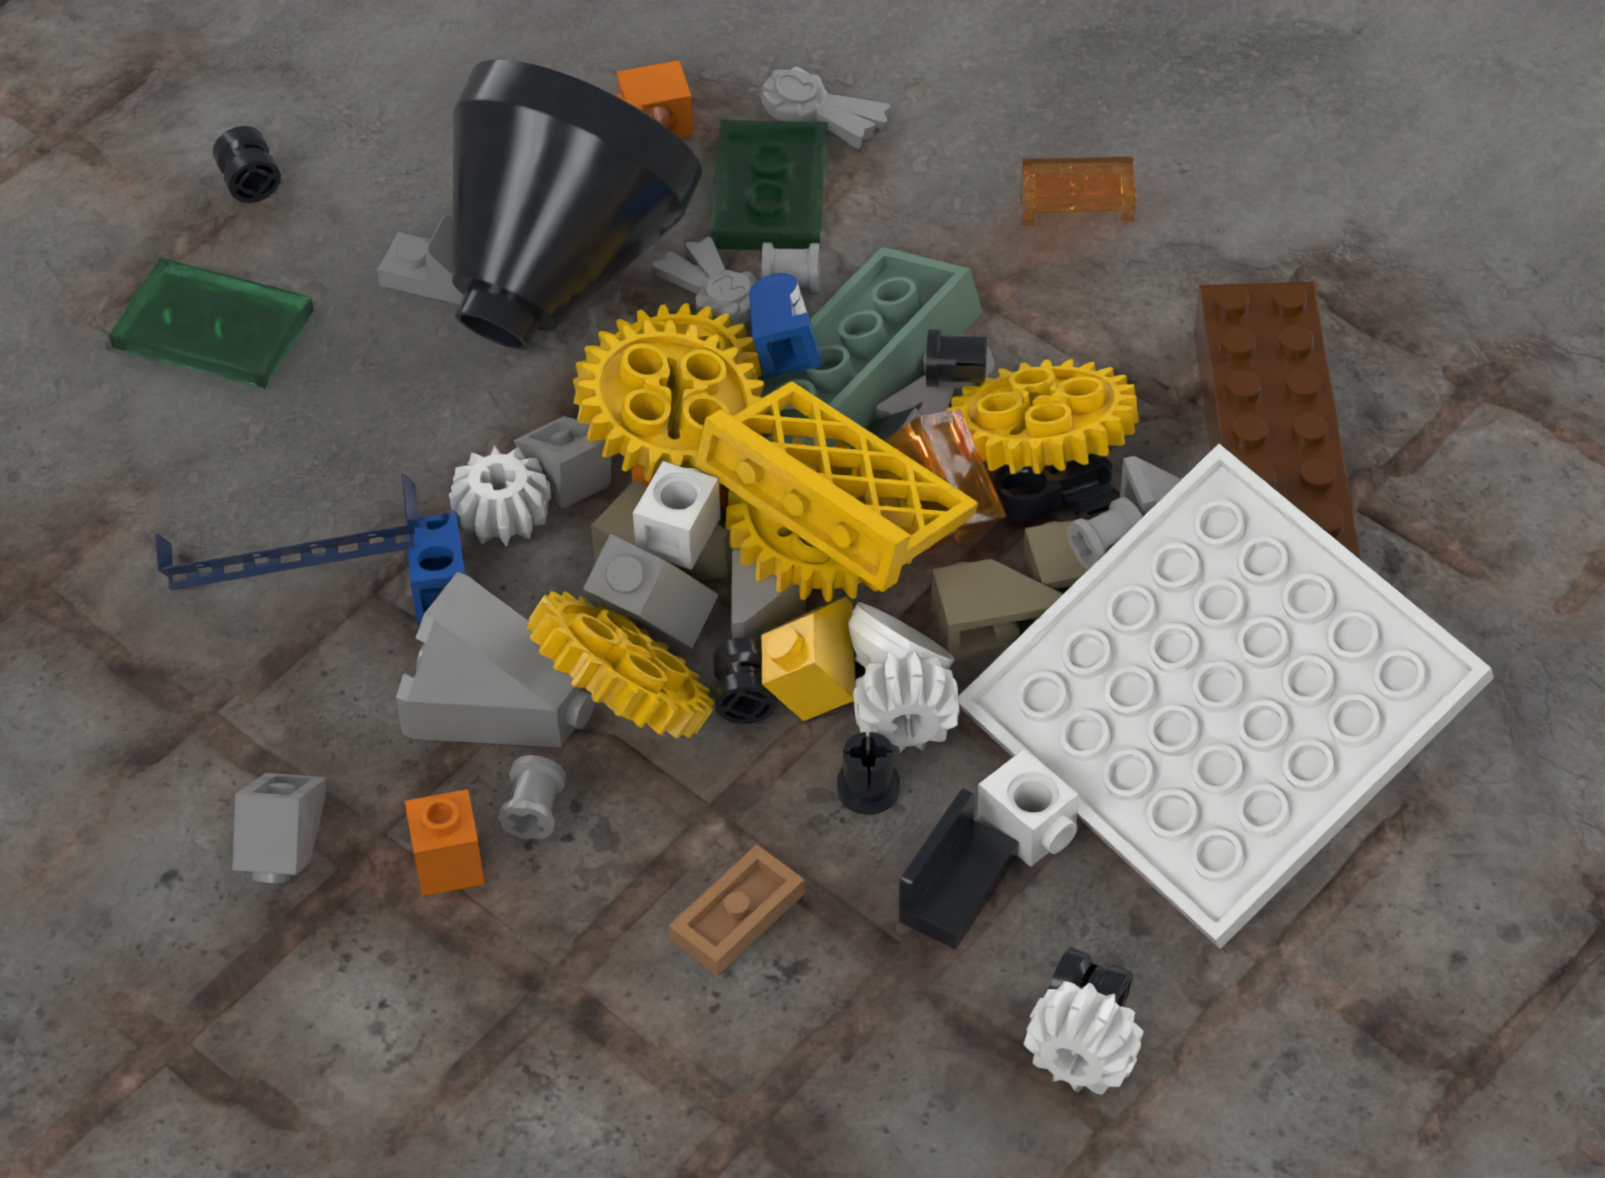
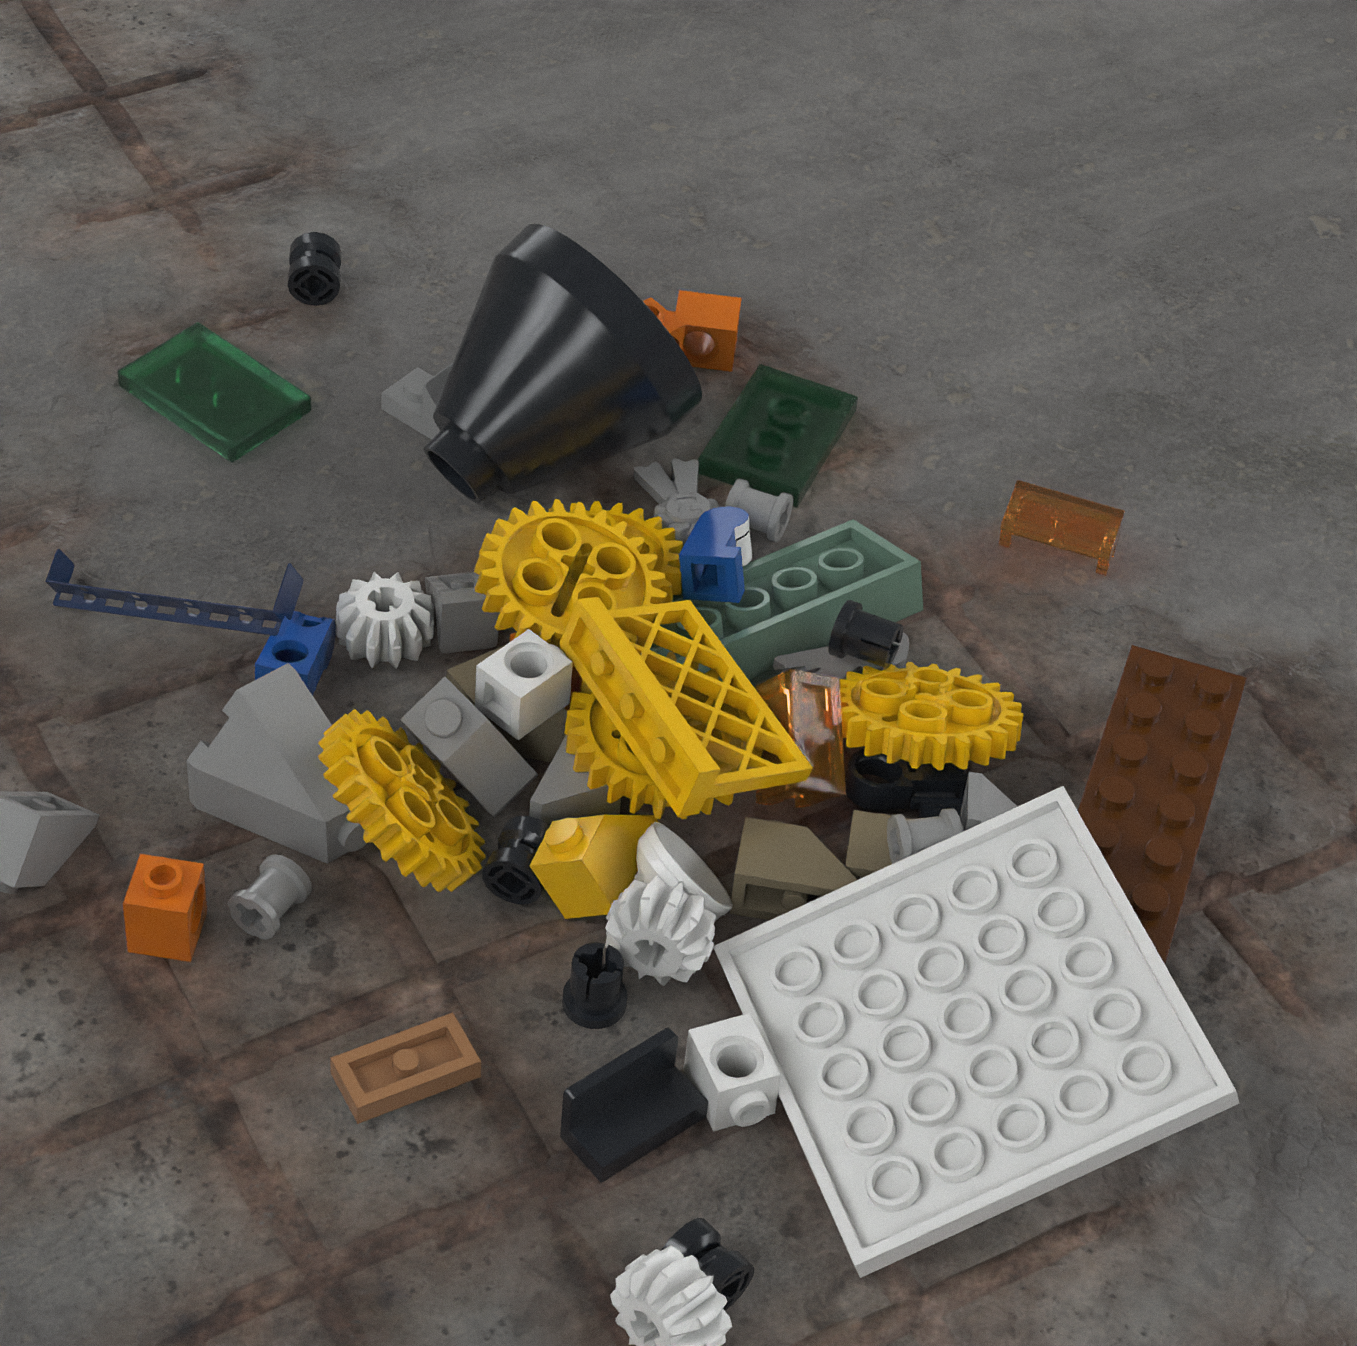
camera: 15 degrees right, 5 degrees down
(802, 98) = (847, 368): light grey piece -> none

